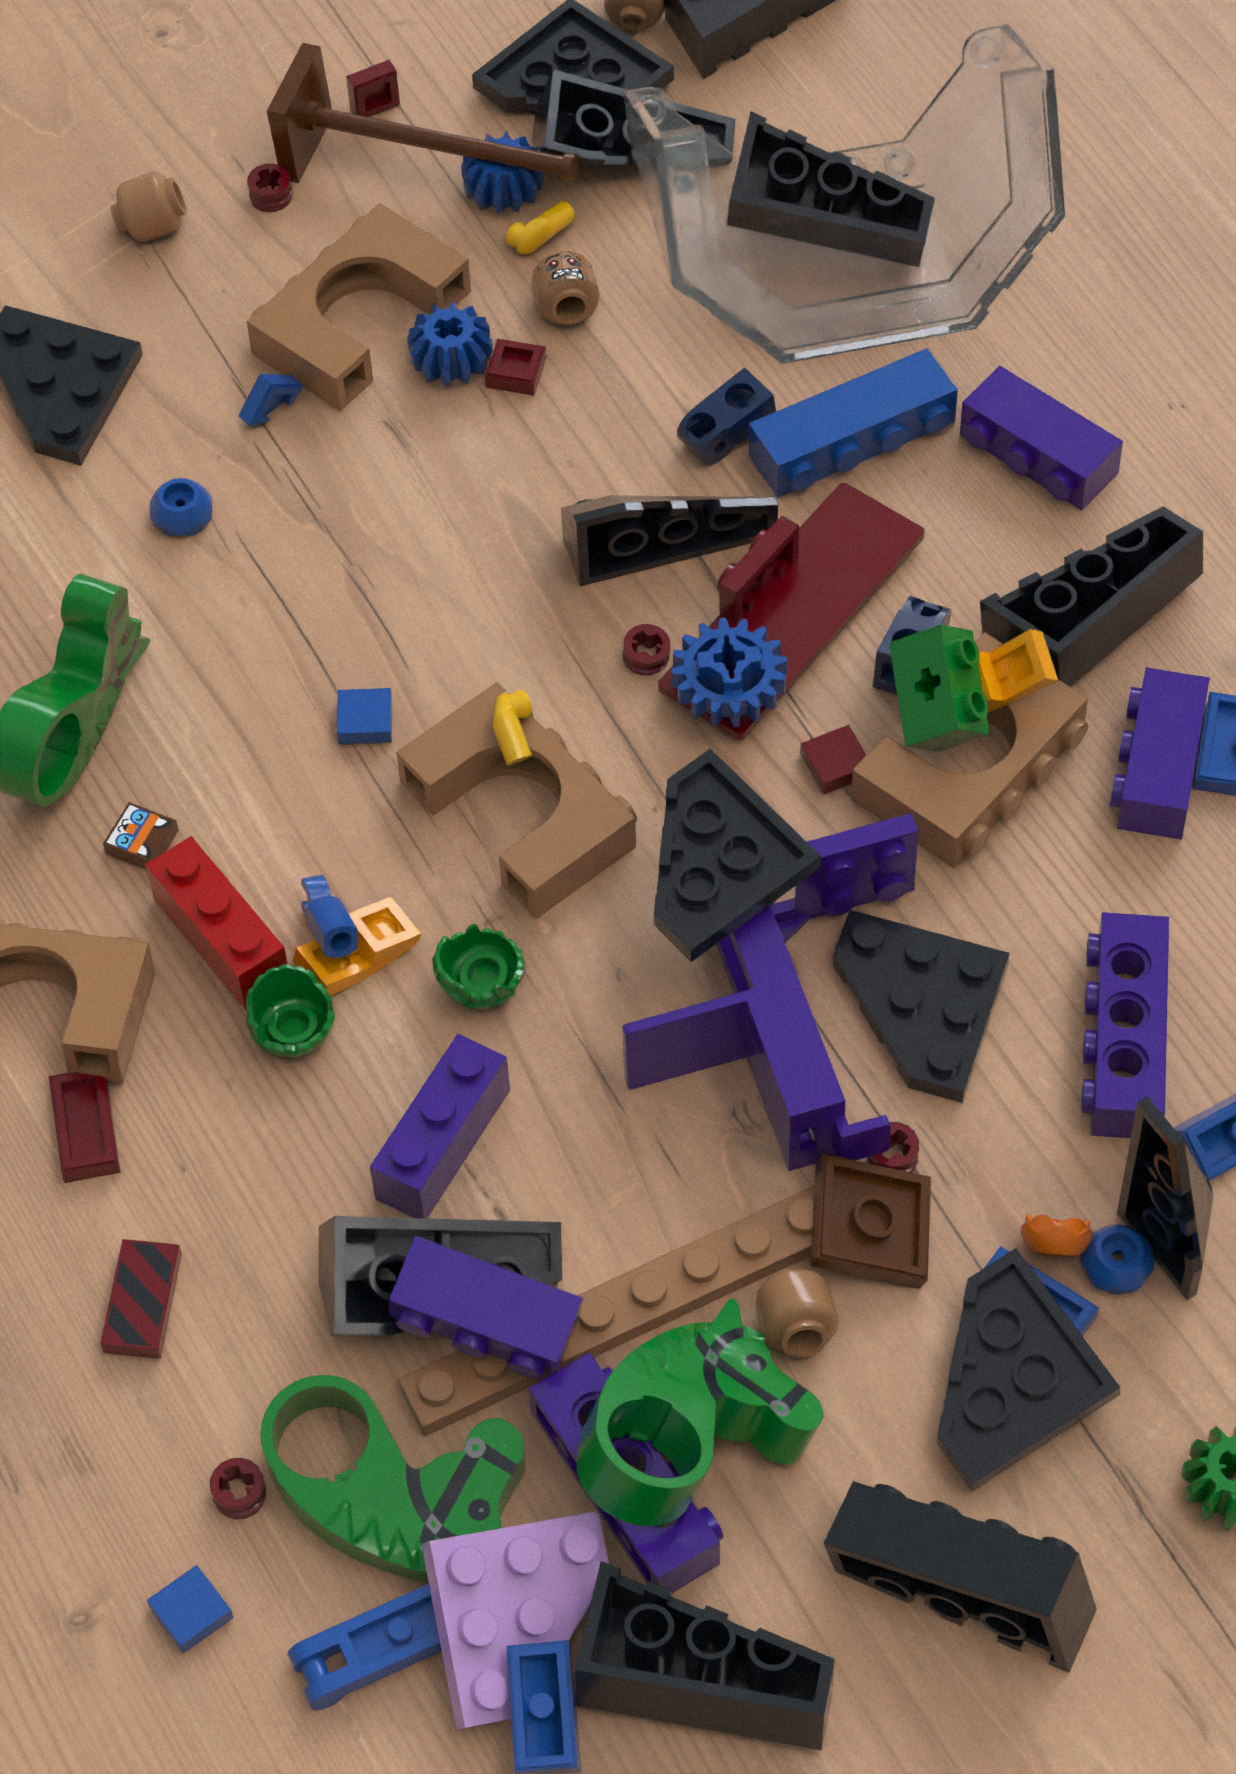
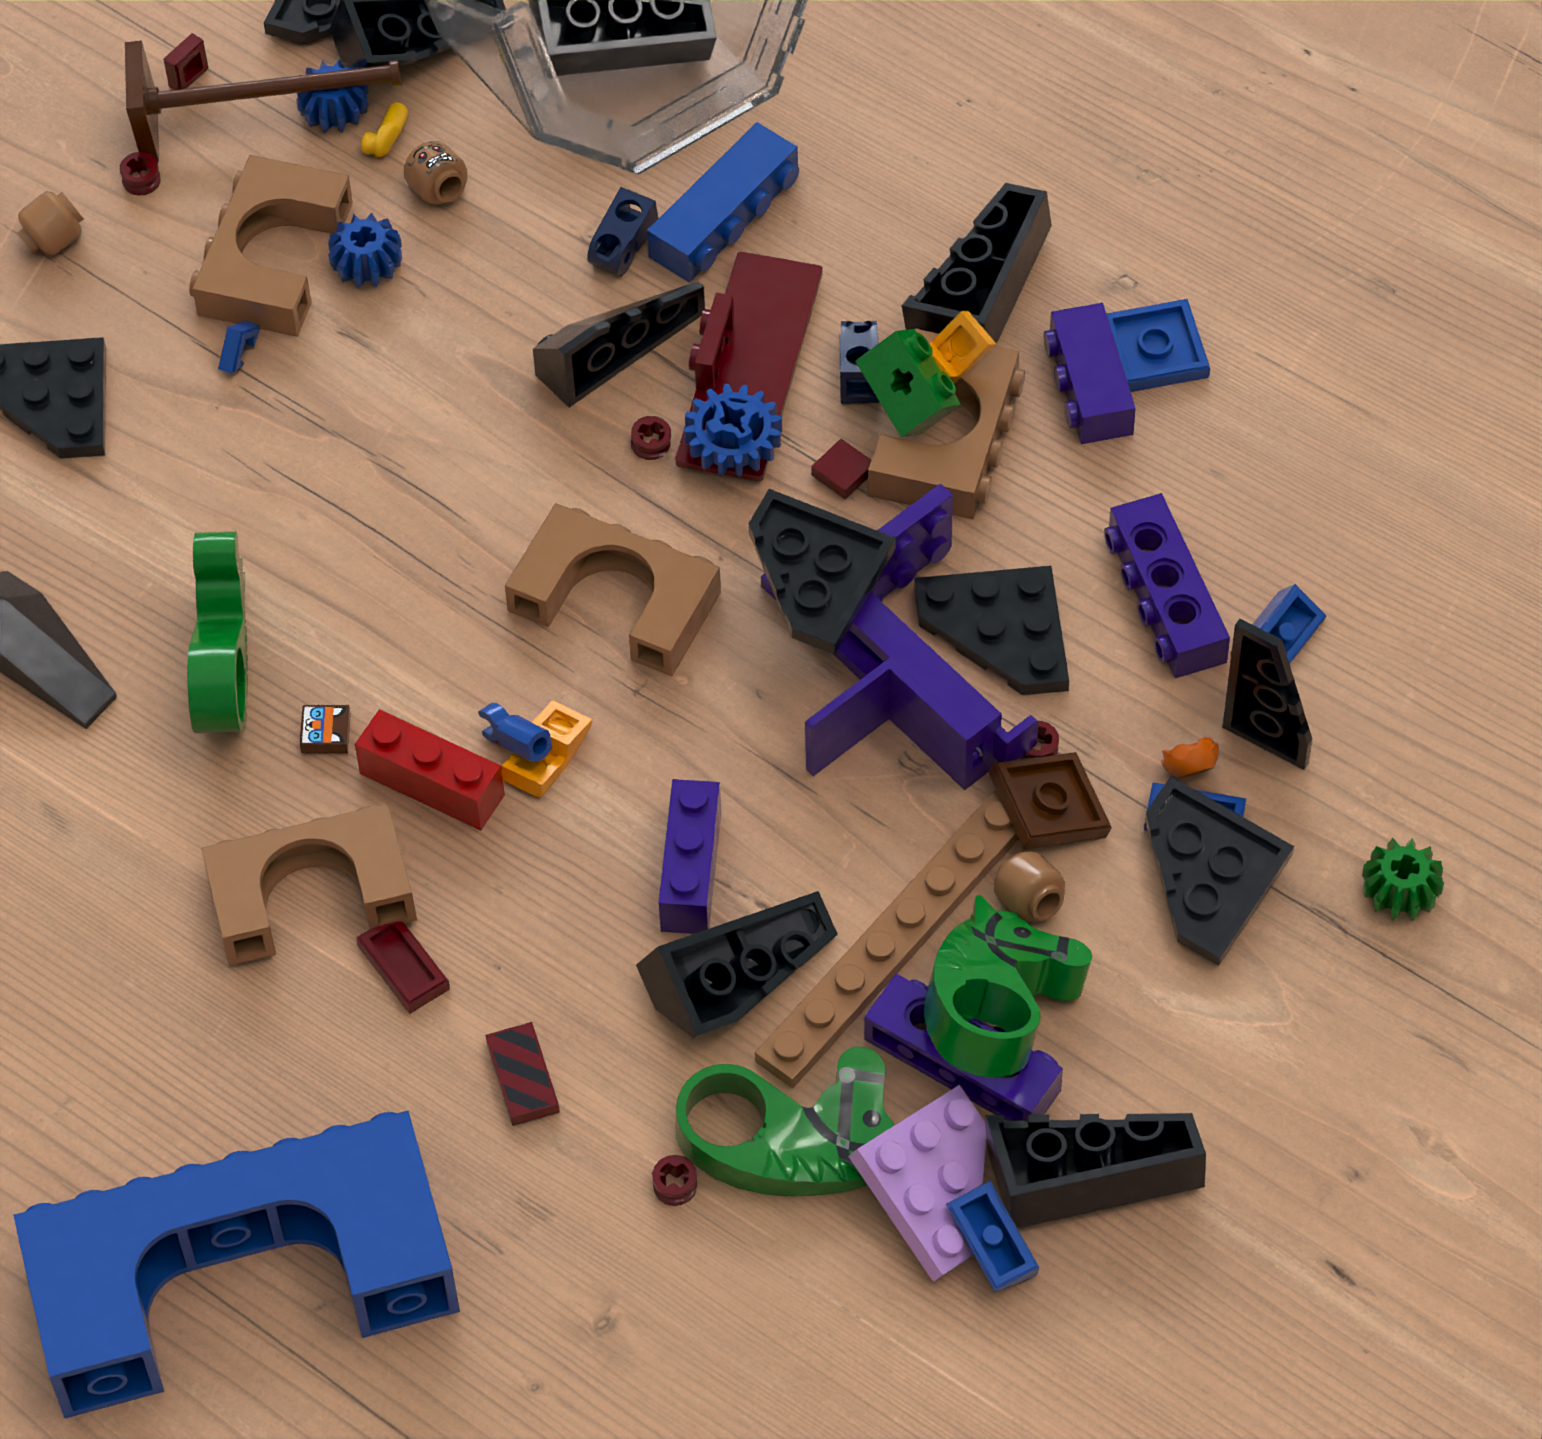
camera: 25 degrees left, 0 degrees up
(183, 520) = (213, 470): blue plate -> none
(190, 1609) = (685, 1280): blue tile -> none
(289, 1011) = (524, 815): green hair -> none
(364, 716) = (454, 569): blue tile -> none
(371, 1646) = (838, 1249): blue plate -> none
(478, 967) = (654, 726): green hair -> none
(484, 1308) = (804, 971): dark purple brick -> none
(508, 728) = (581, 522): yellow arm -> none
(515, 367) = (425, 250): dark red tile -> none
(965, 1569) = (1245, 1017): black wedge -> none
(1040, 438) = (876, 163): dark purple brick -> none
(1113, 1274) = (1242, 771): blue plate -> none

